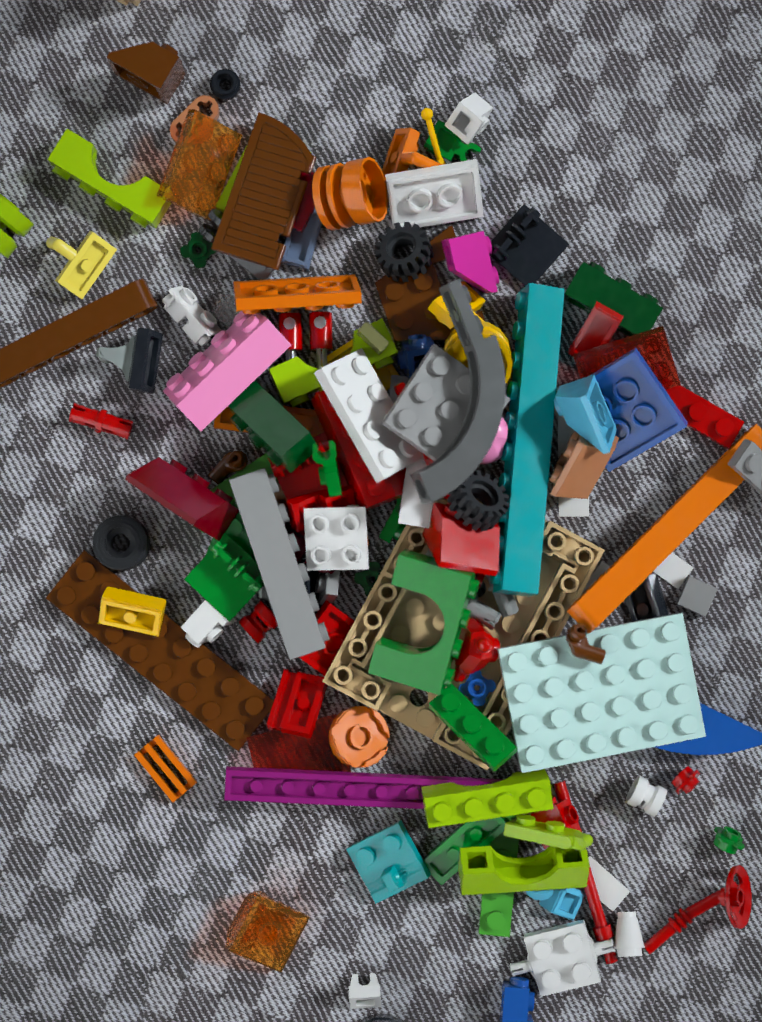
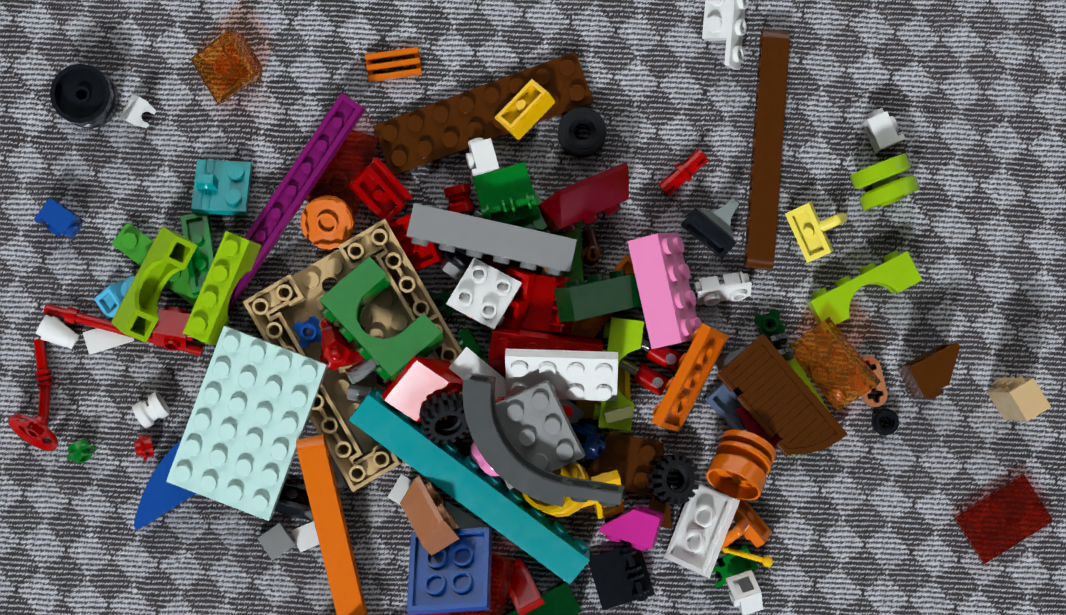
camera: 120 degrees right, 0 degrees up
(329, 472) = (539, 319): green plate -> none
(473, 727) = (279, 309): green plate -> none
(549, 833) = (166, 318): lime hinge -> none
(562, 957) = (71, 273): white plate -> none
(580, 646) = (290, 427): reddish brown arm -> none
(586, 412) = (463, 542): medium azure slope -> none

